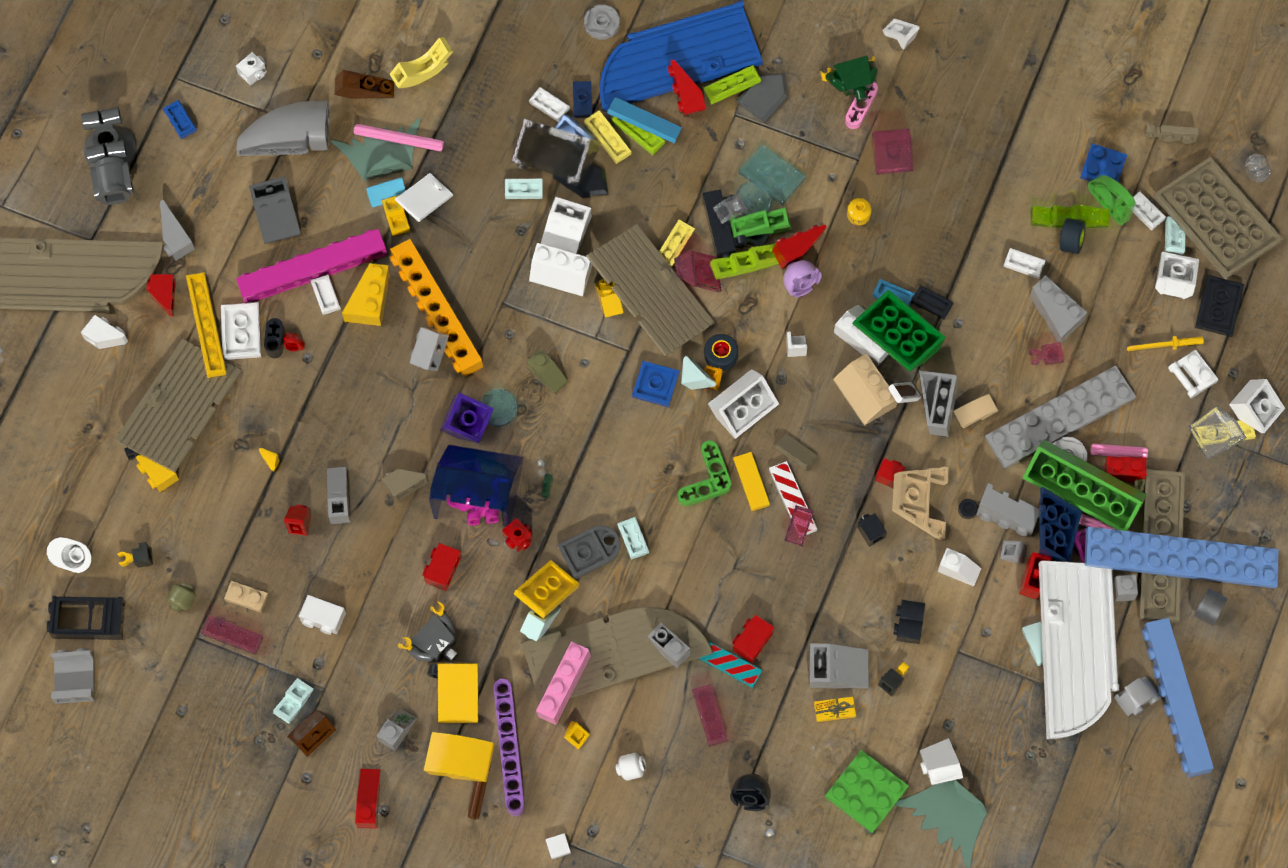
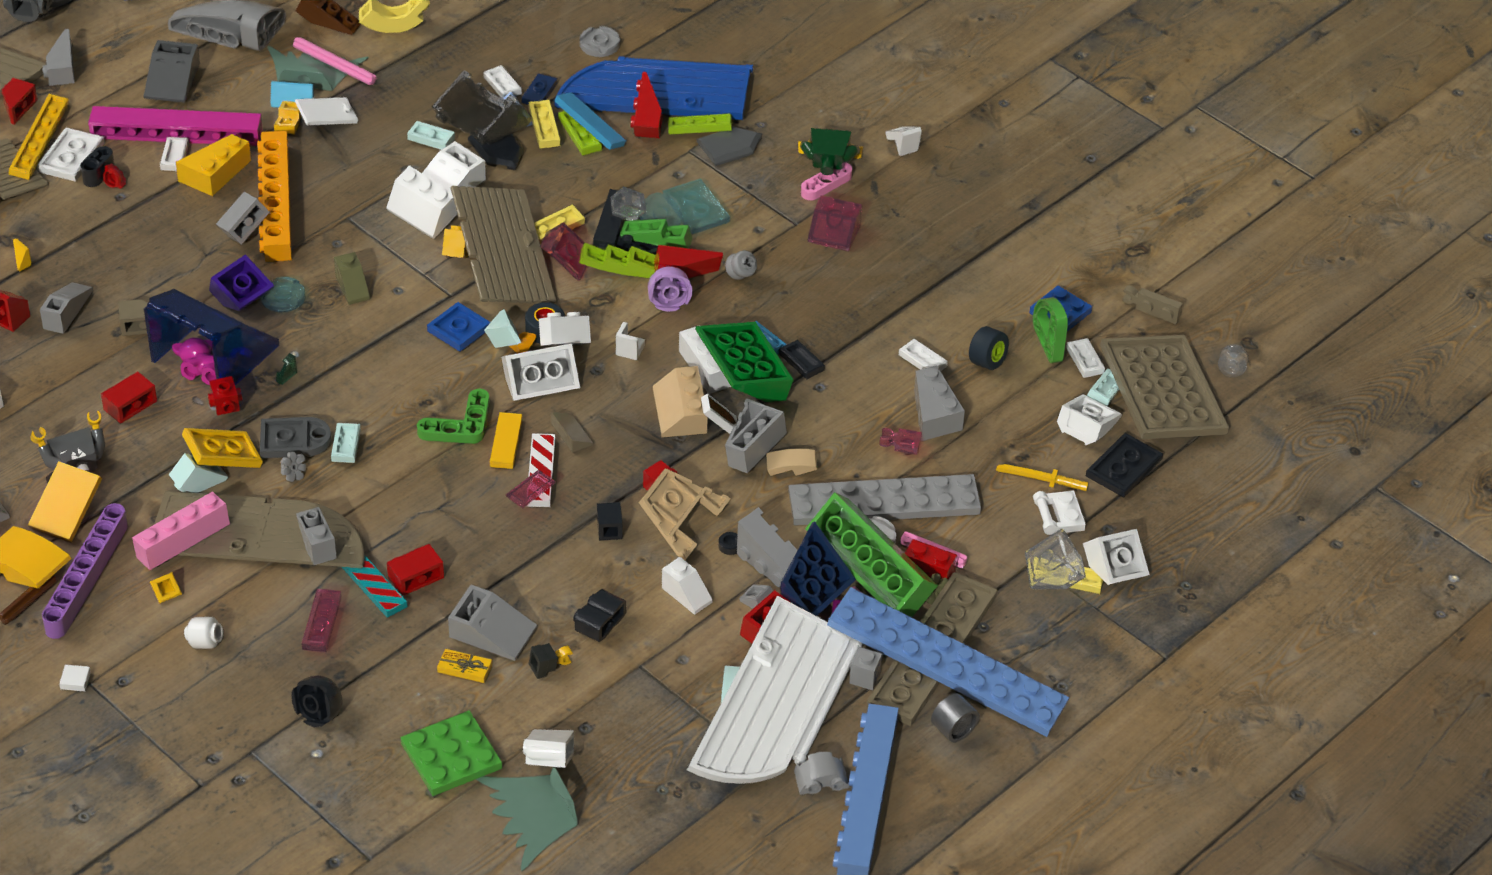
camera: 20 degrees right, 25 degrees down
(606, 580) = (292, 466): none -> light grey plant
(745, 359) = (564, 330): none -> white brick
(843, 228) = (741, 265): none -> light grey piece
(859, 211) = (768, 257): yellow head -> none
(1056, 215) = (1020, 342): clear neon green slope -> none

